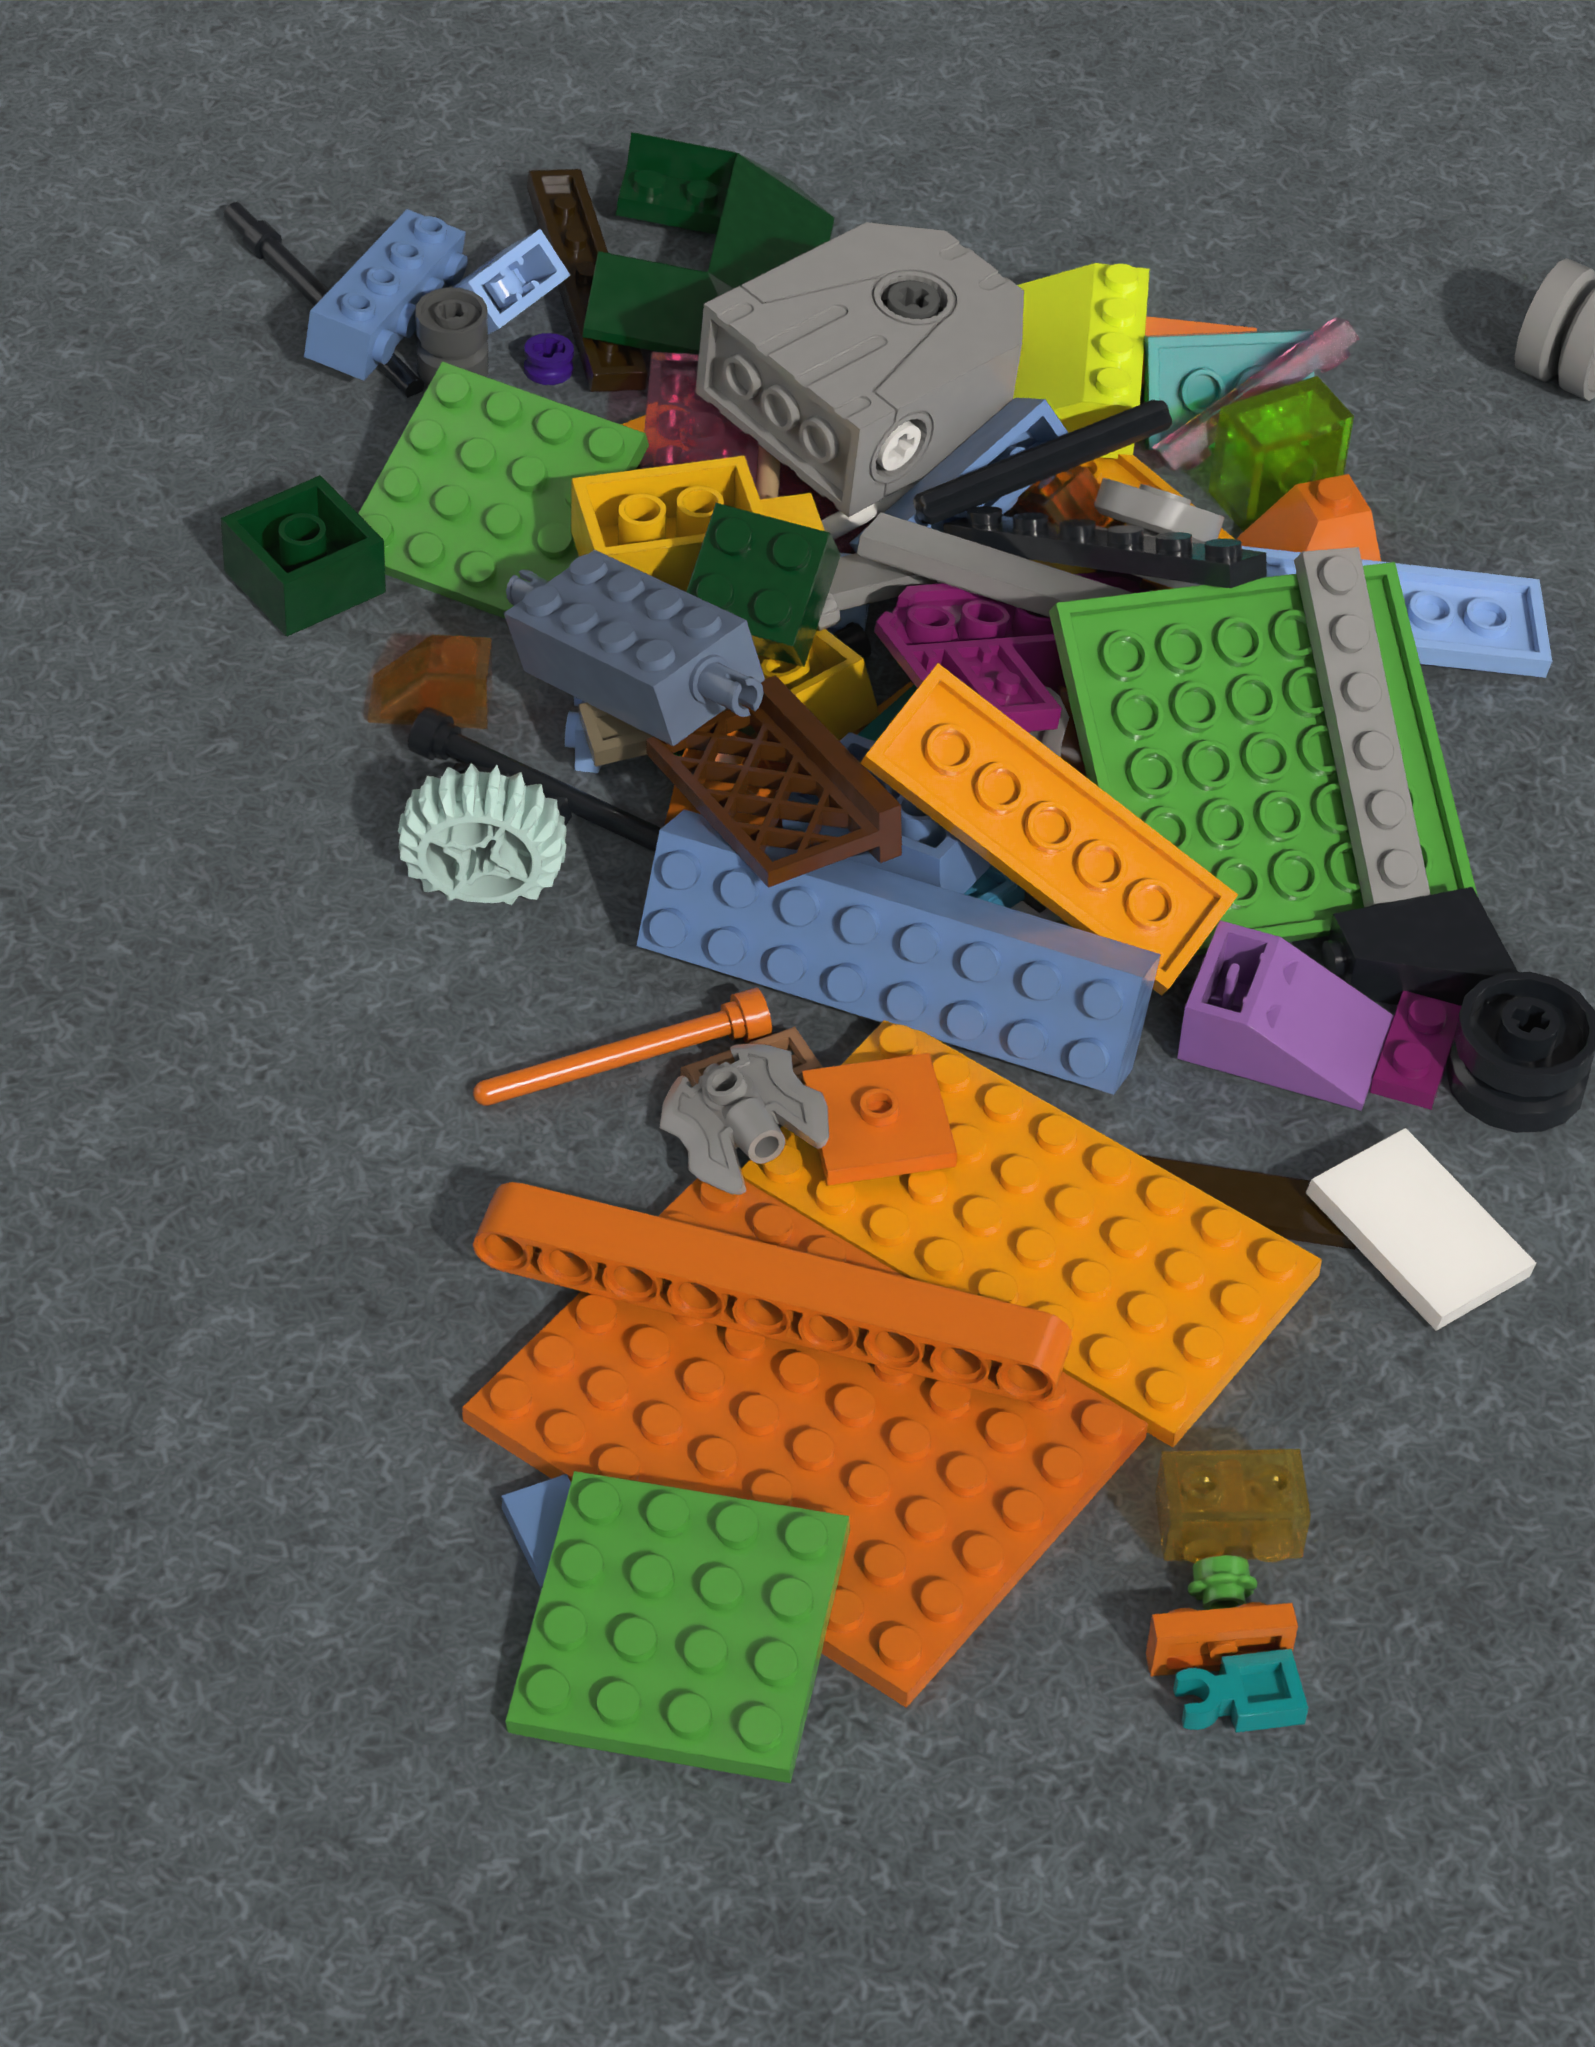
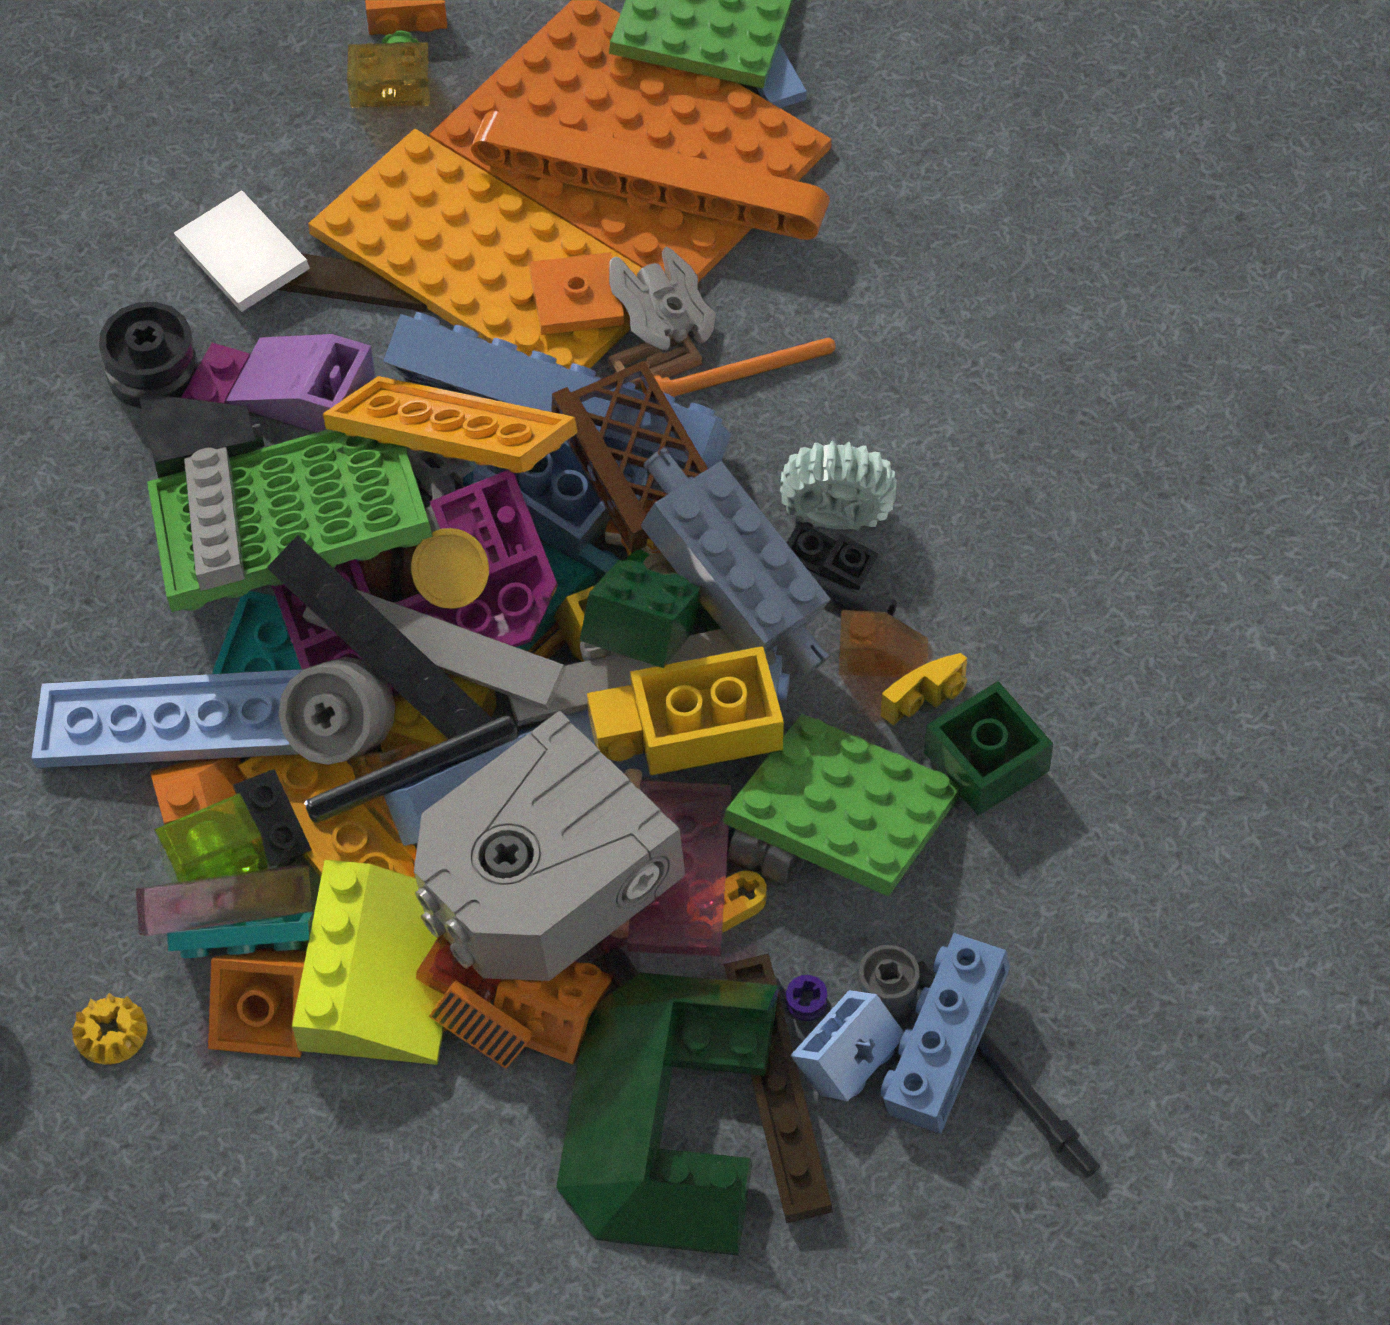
camera: 175 degrees left, 10 degrees up
(369, 644) = (930, 682): none -> yellow slope
(1016, 630) = (450, 568): none -> yellow piece
(1223, 493) = (274, 818): none -> black hinge
(1383, 361) = (114, 1046): none -> yellow gear

